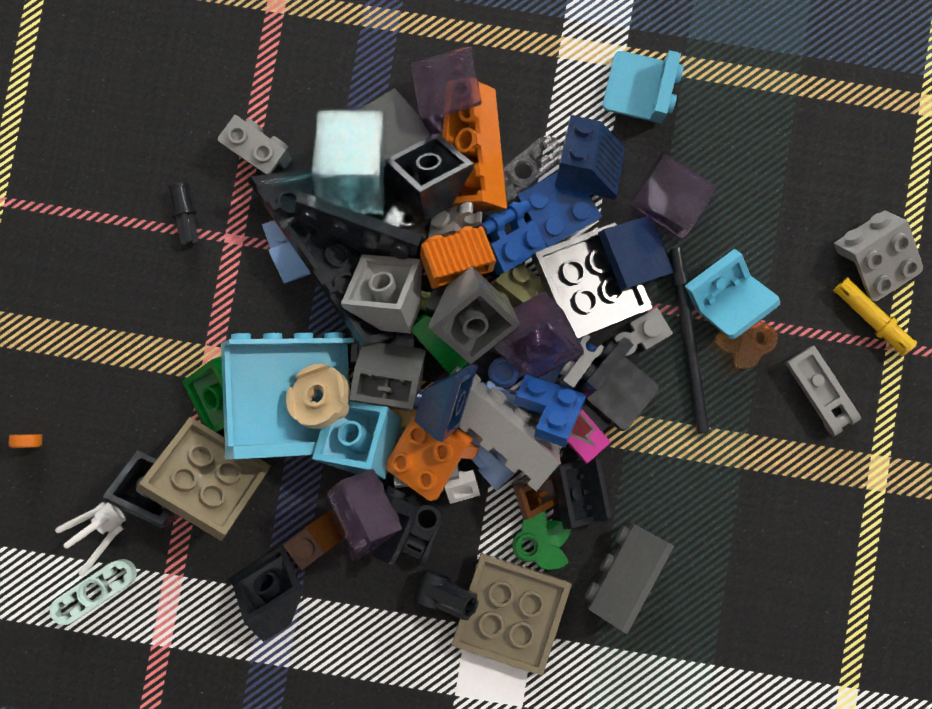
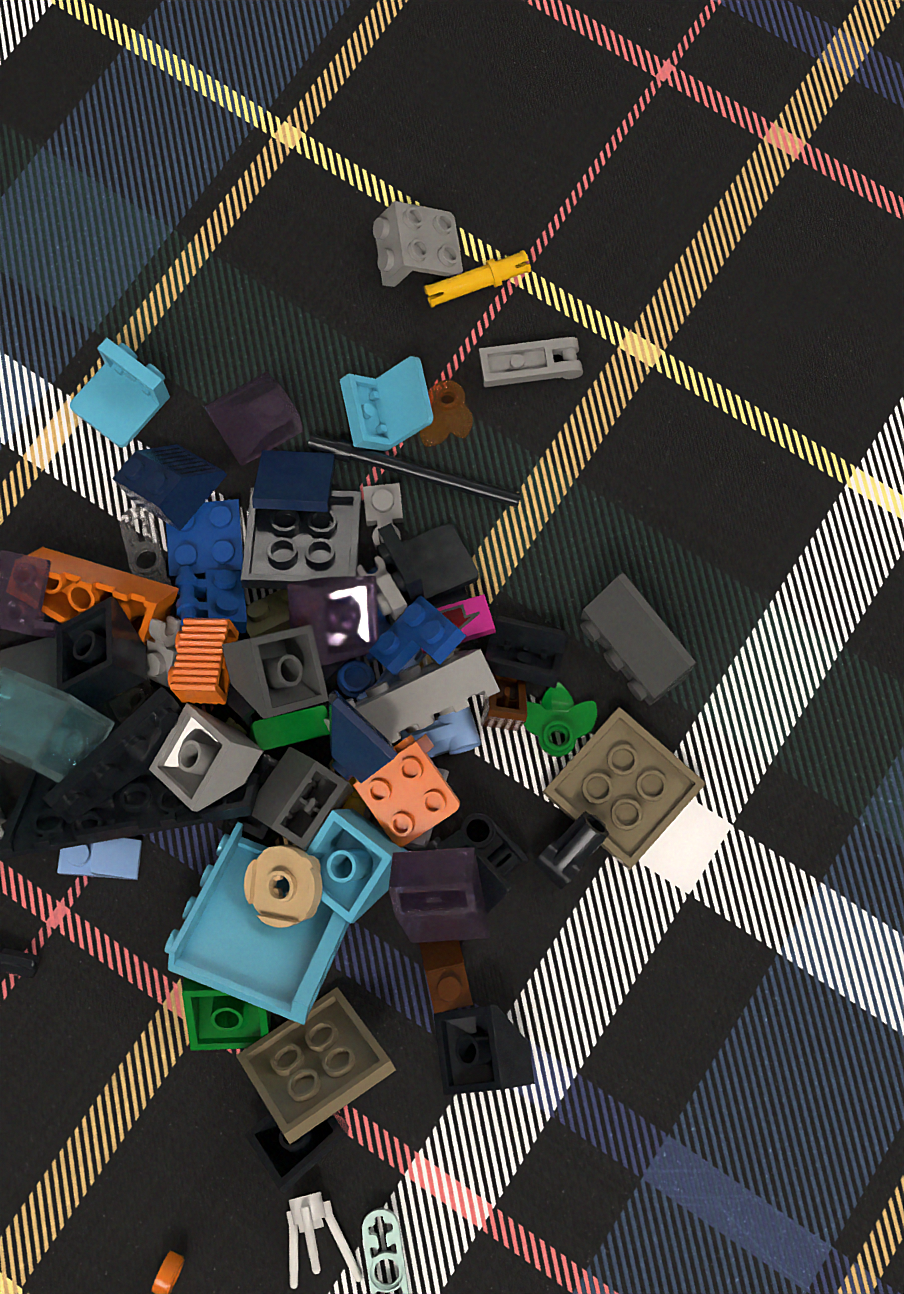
camera: 70 degrees left, 10 degrees down
(462, 488) = (462, 777): white plate -> none

